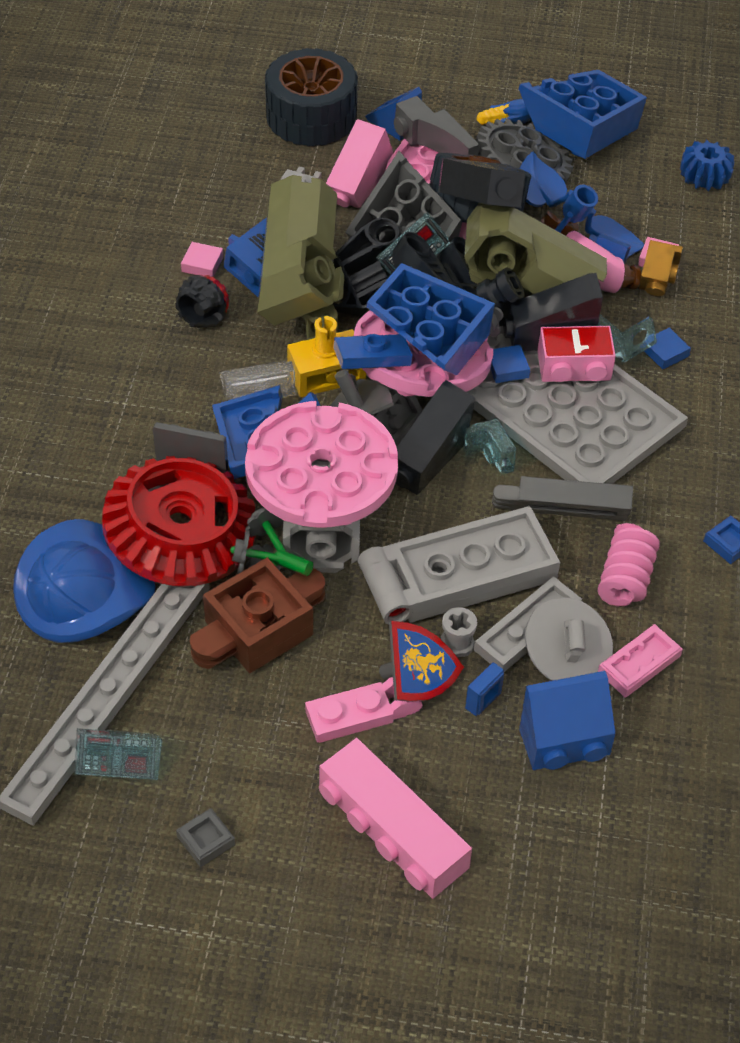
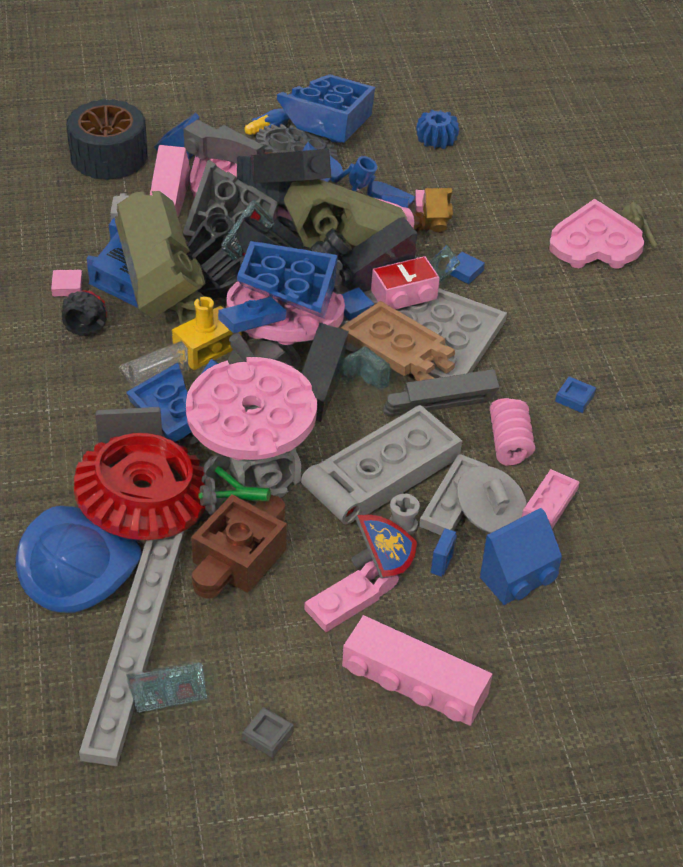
camera: 20 degrees left, 5 degrees down
(539, 422) = (400, 341): none -> medium nougat tile

